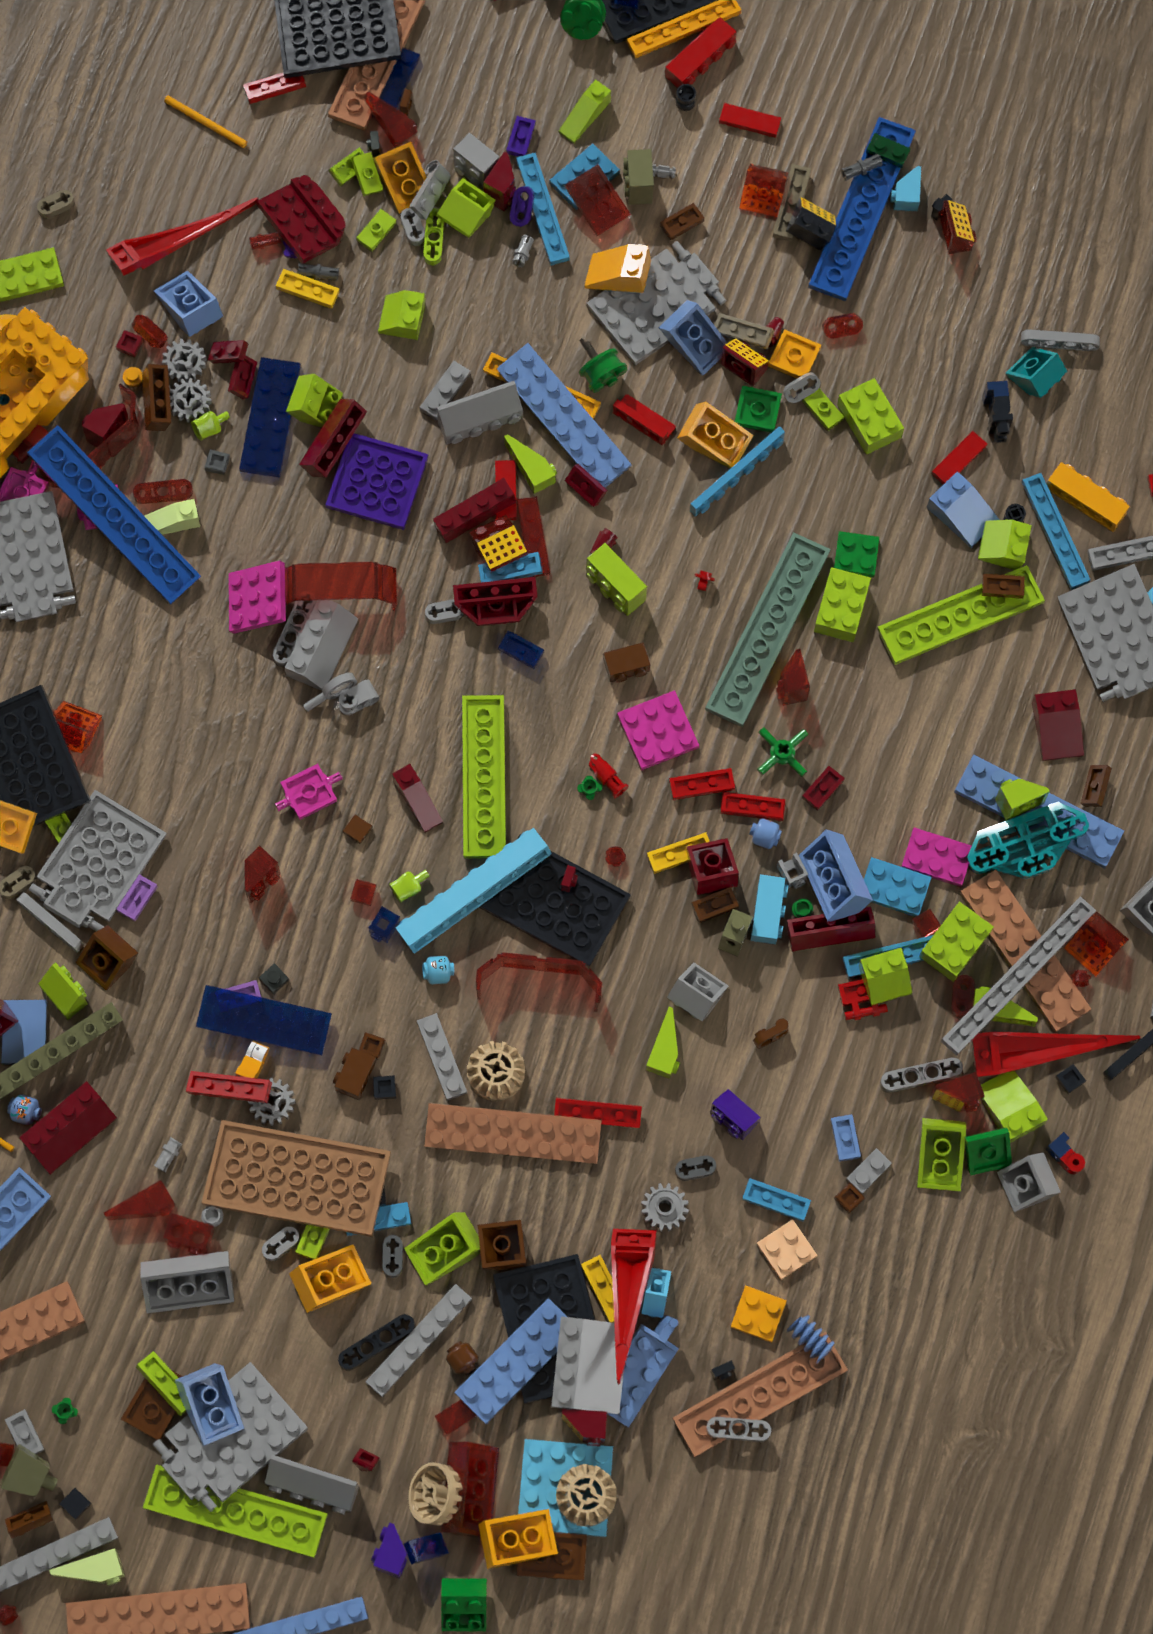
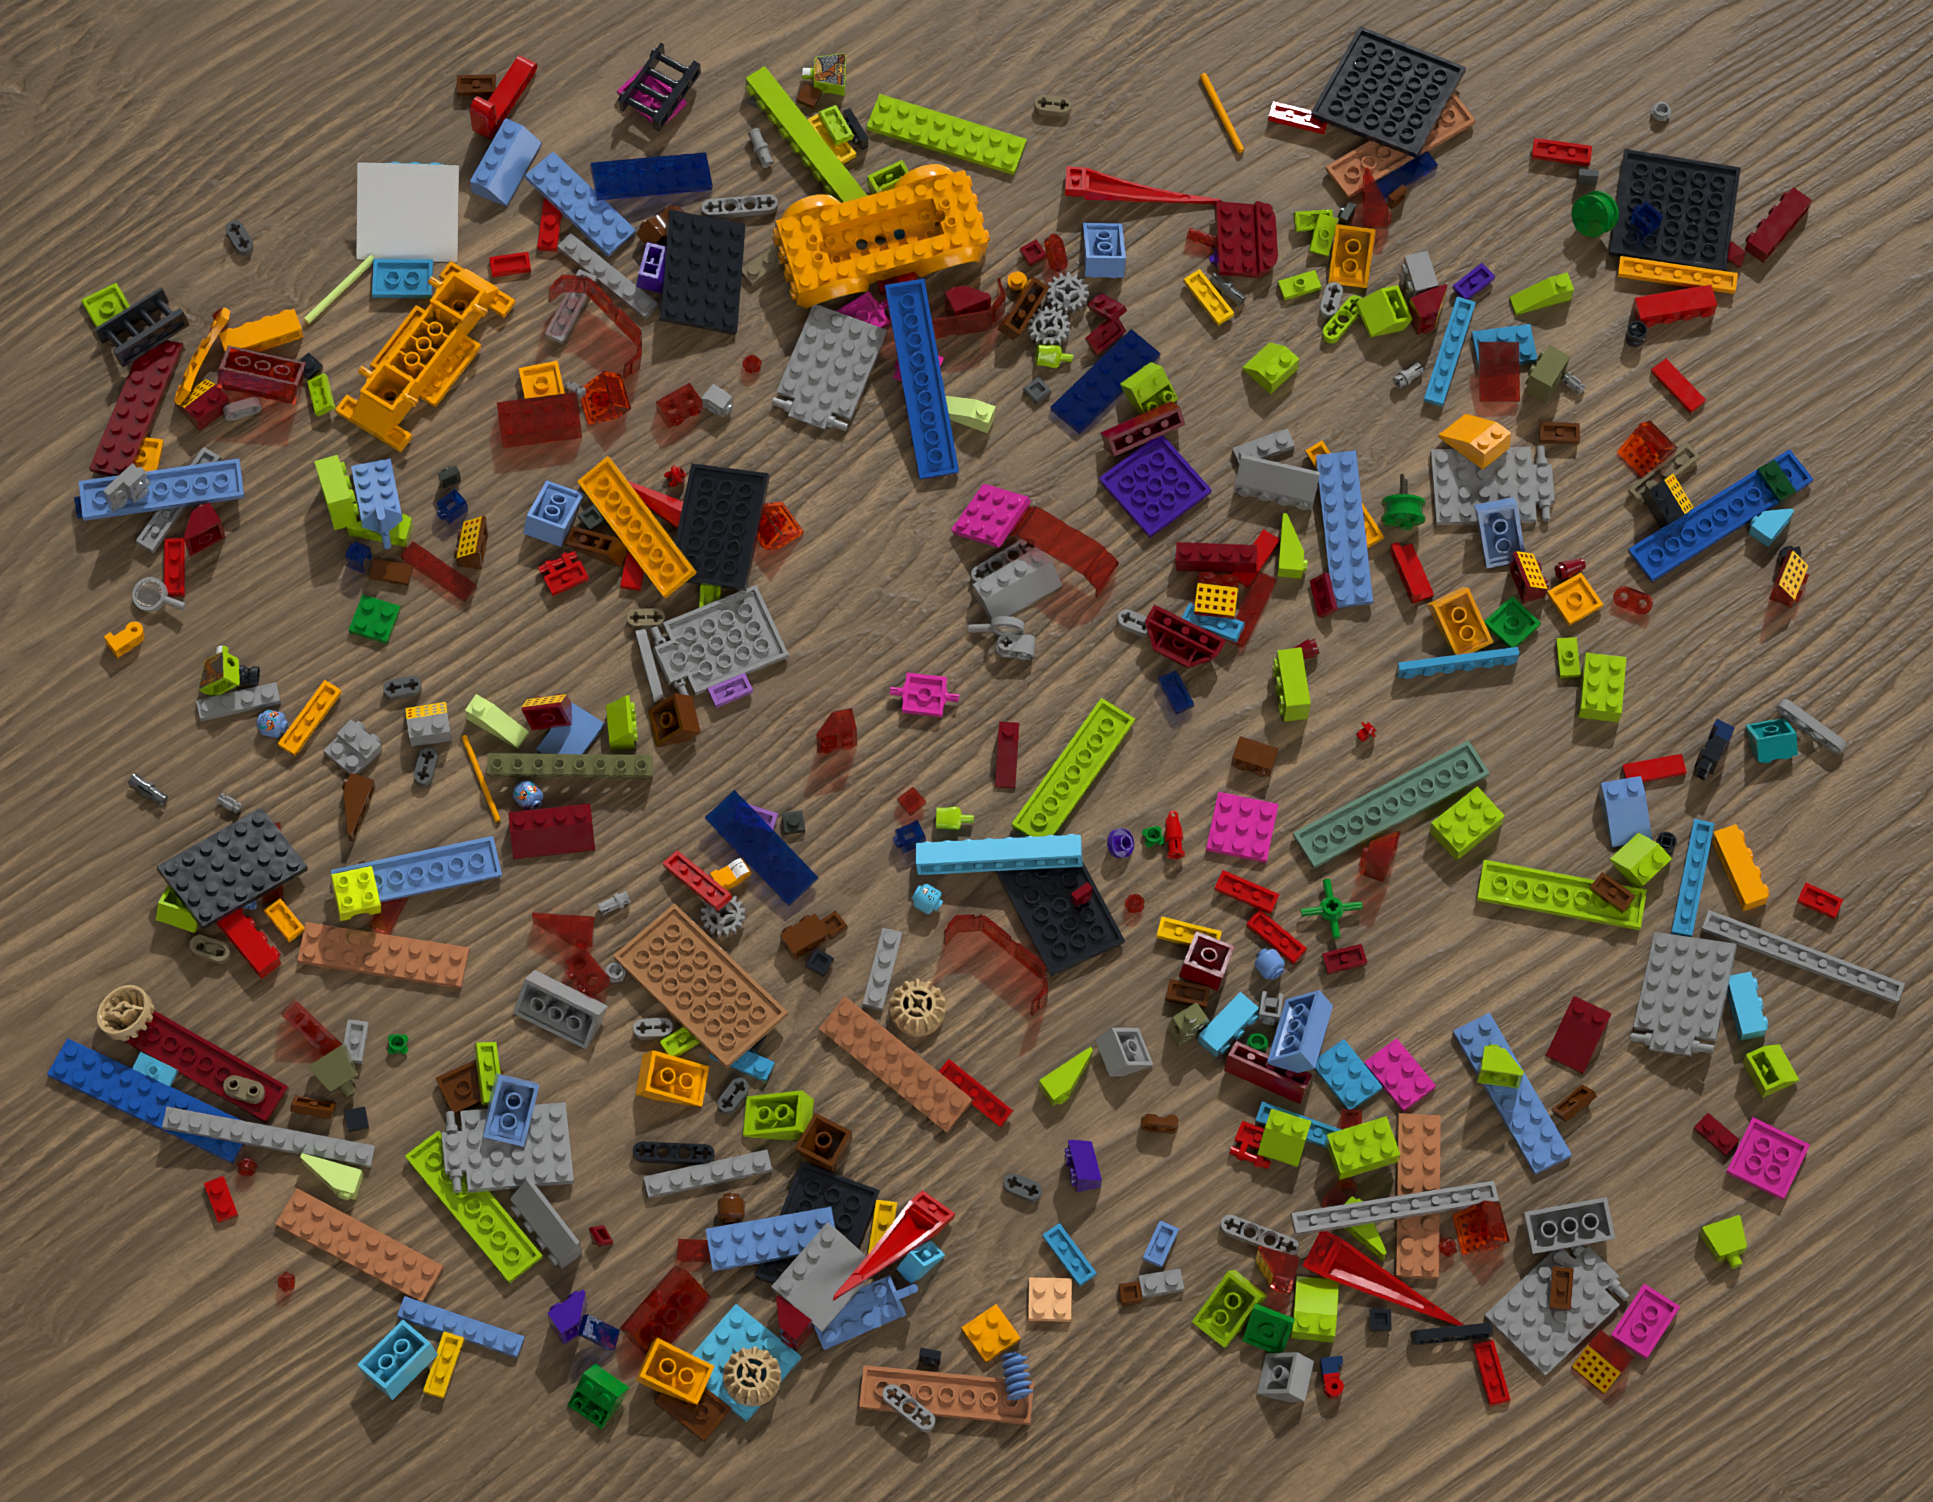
camera: 35 degrees right, 5 degrees down
(158, 484) = (992, 388): clear red beam -> none
(357, 829) = (942, 749): reddish brown tile -> none
(429, 1498) = (634, 1294): tan gear -> none
(431, 189) = (1365, 279): light grey plate -> none
(522, 205) = (1433, 338): dark purple plate -> none
(567, 811) = (1120, 843): none -> dark purple plate
(660, 1218) = (975, 1190): light grey gear -> none
(744, 331) = (1545, 552): dark tan tile -> none
(804, 391) = (1561, 623): light grey beam -> none
(857, 553) = (1510, 791): green plate -> none
(861, 167) = (1742, 480): dark grey pin -> none
(1030, 845) = (1479, 1111): teal connector -> none

